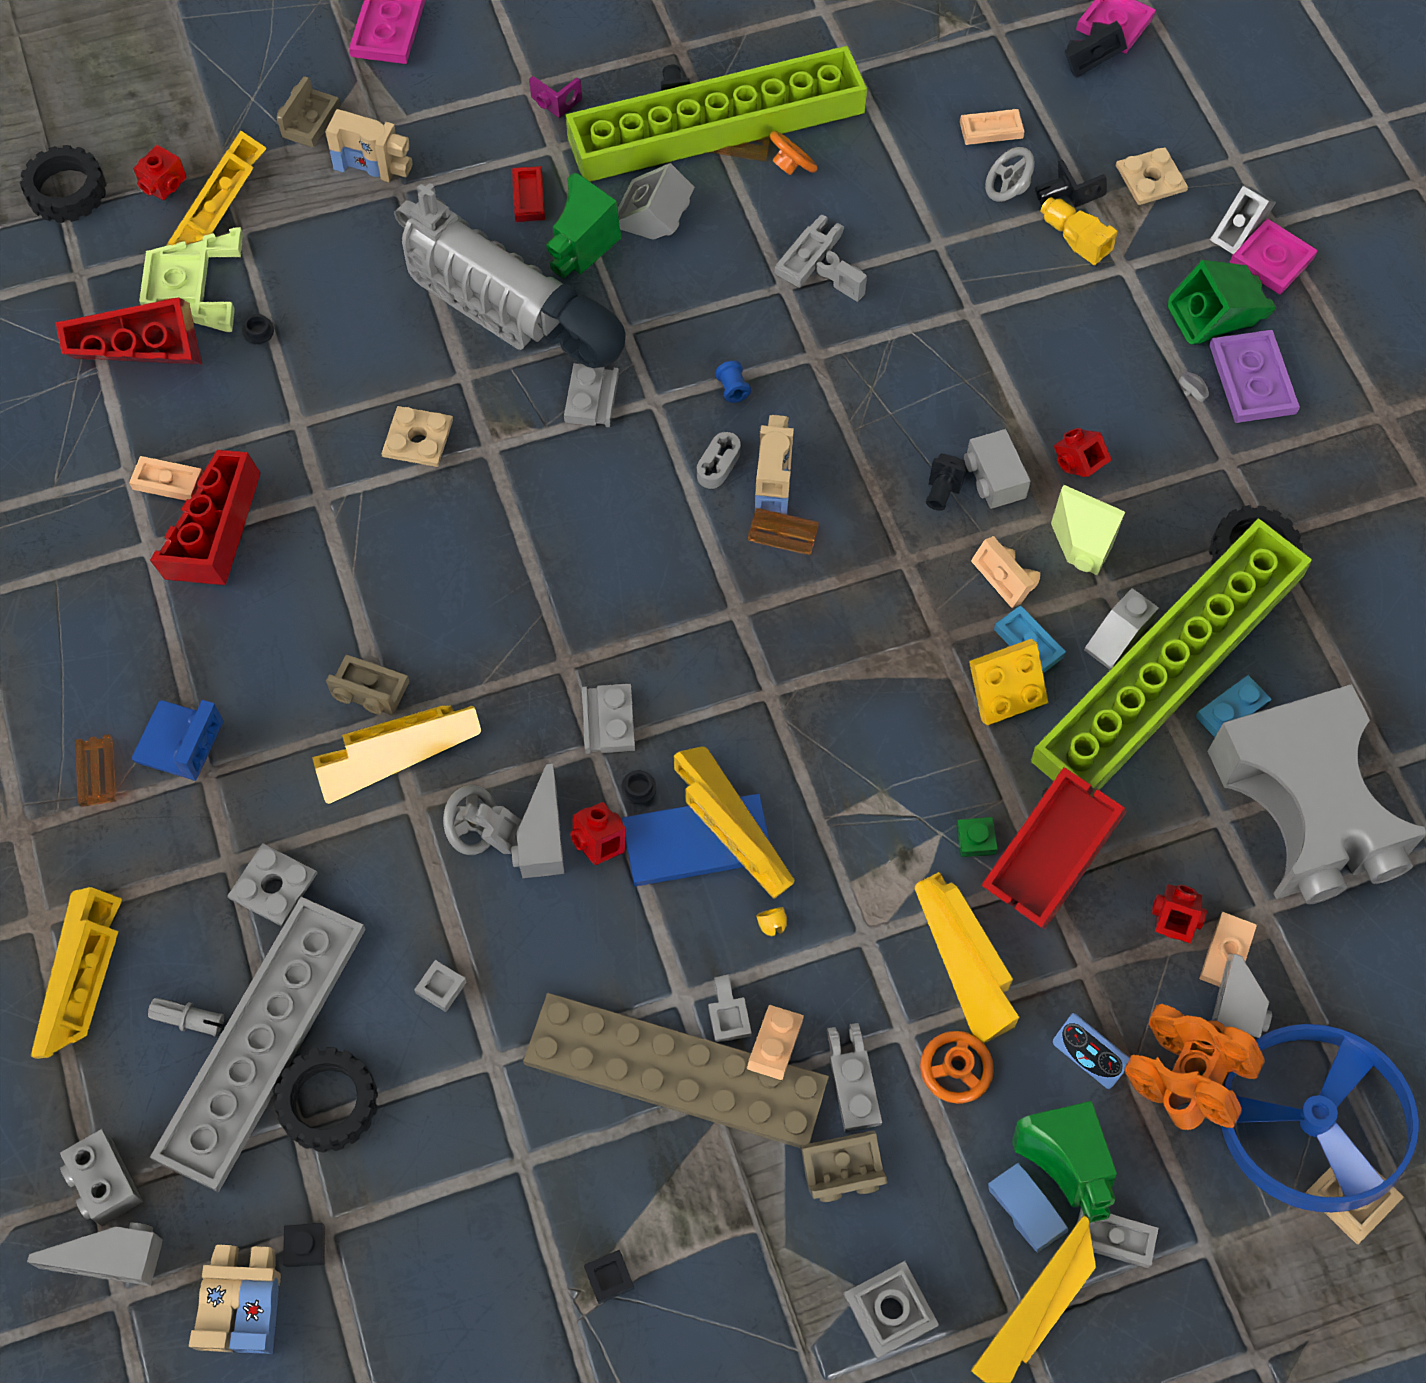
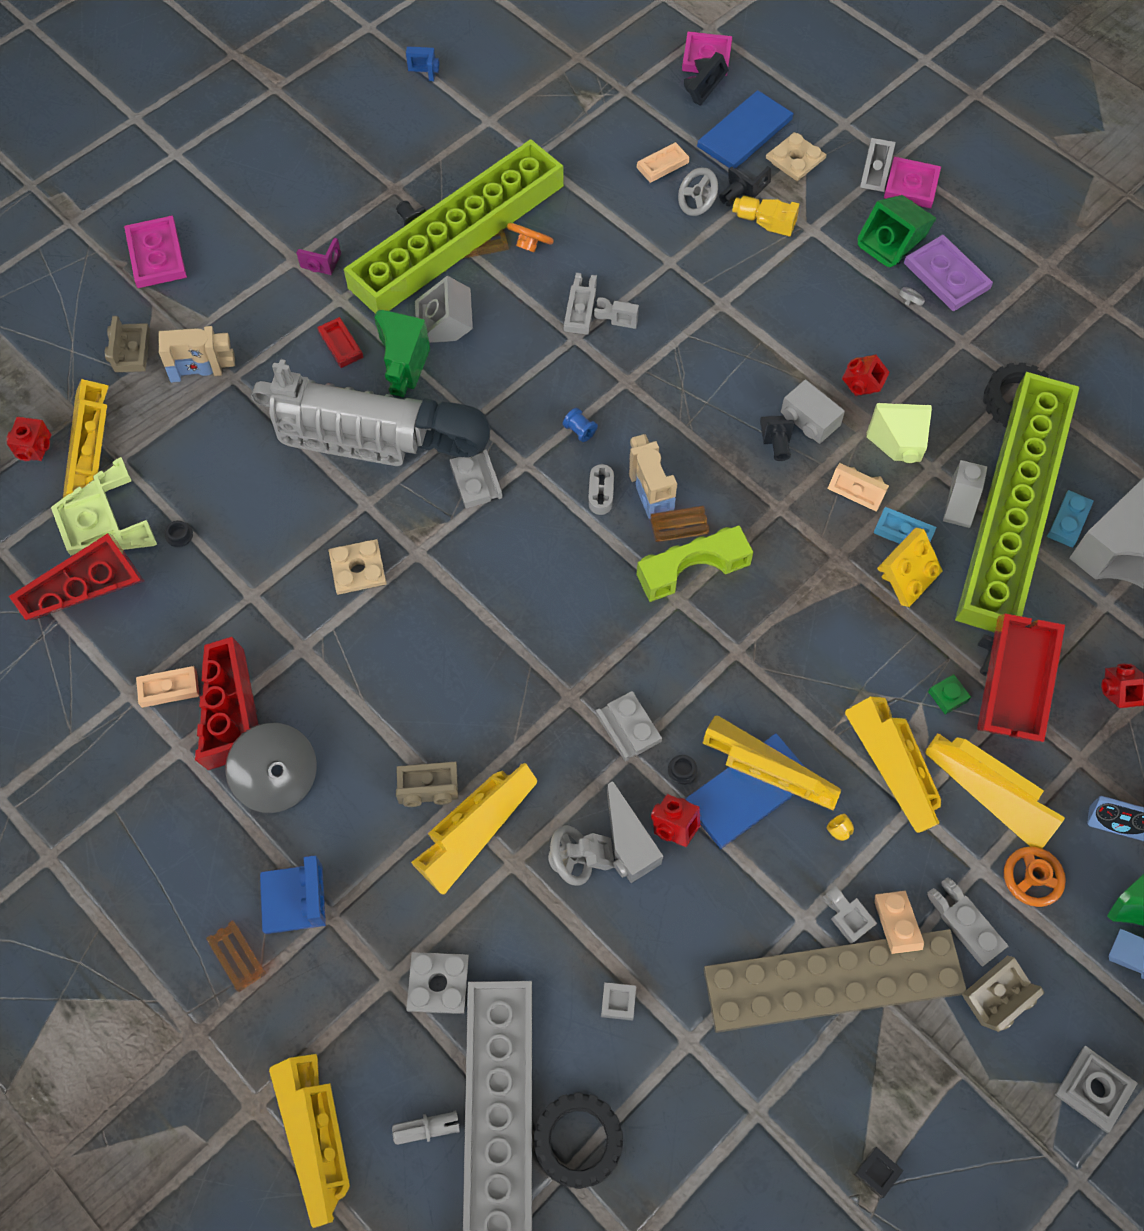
camera: 25 degrees left, 0 degrees up
(226, 576) = (251, 764): none -> dark grey dish
(812, 577) = (724, 550): none -> lime arch
(877, 878) = (897, 759): none -> yellow wedge
(1111, 124) = (745, 130): none -> blue tile

